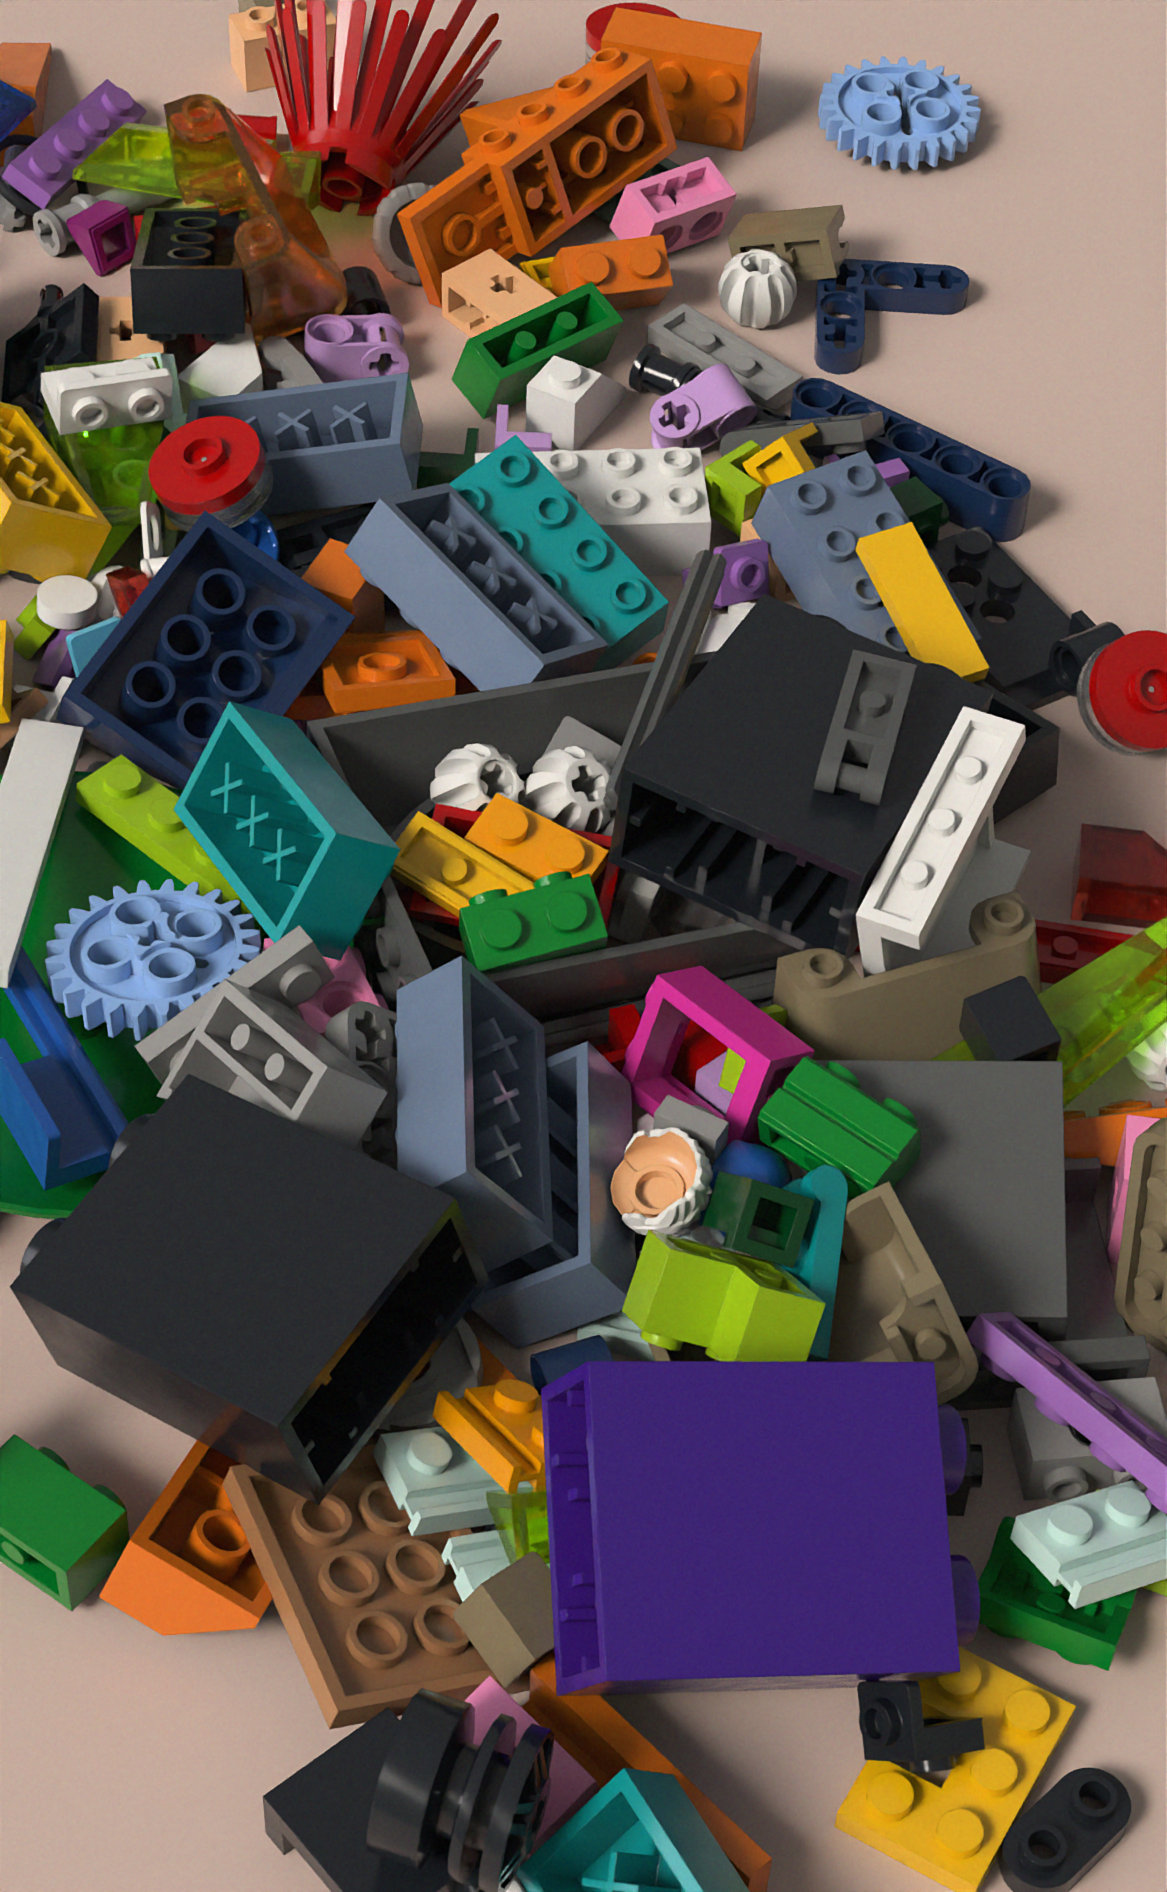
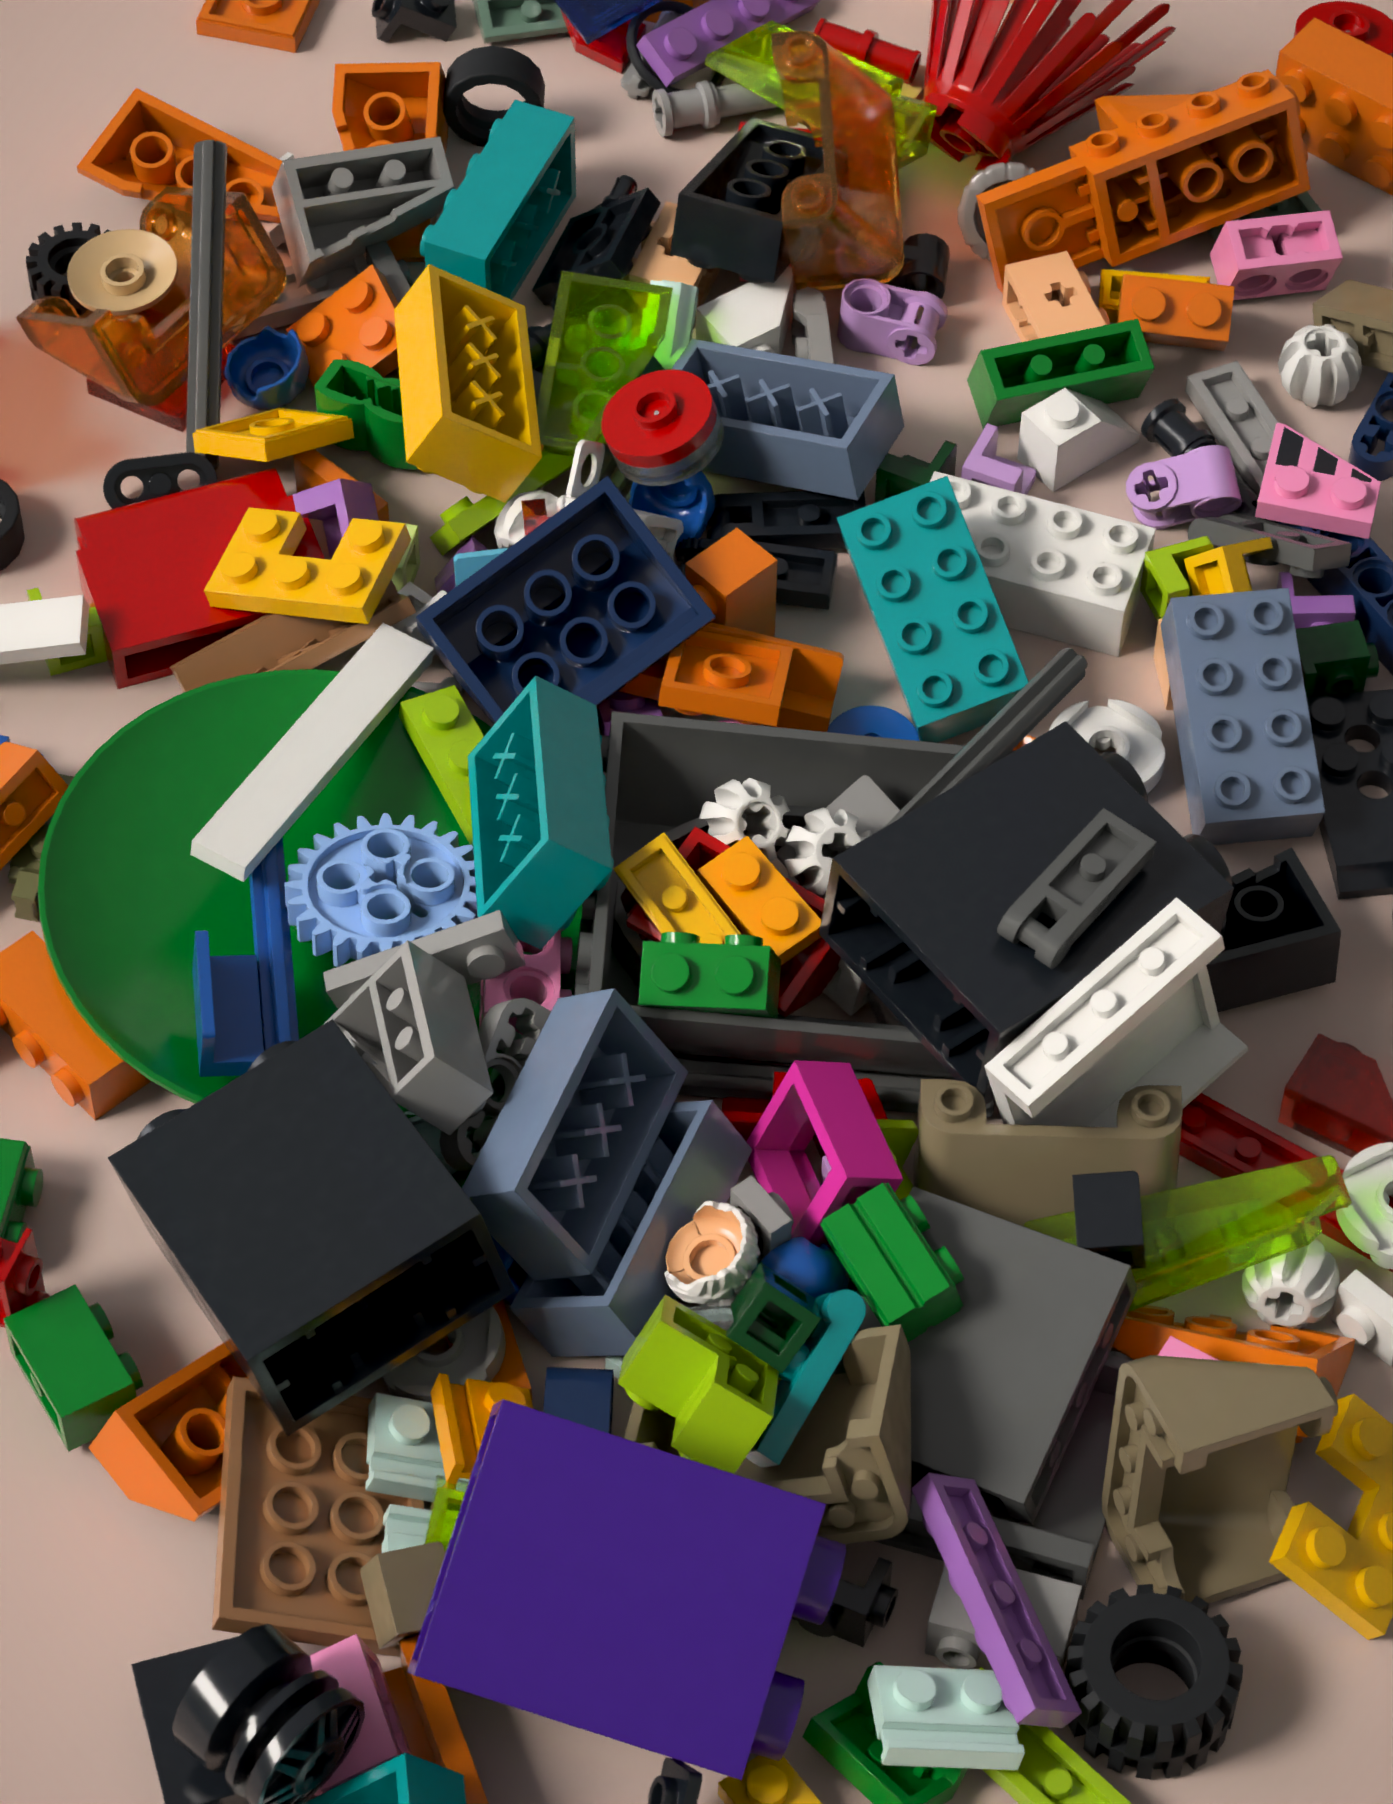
camera: 25 degrees right, 5 degrees up
(66, 602) = (480, 516): white tile -> none
(104, 235) = (708, 127): magenta slope -> none
(107, 395) = (602, 318): white bracket -> none
(471, 591) = (836, 625): sand blue brick -> none
(745, 572) = (1124, 670): medium lavender bracket -> none
(820, 378) = (1315, 487): none -> bright pink wing
(920, 601) = (1265, 768): yellow tile -> none

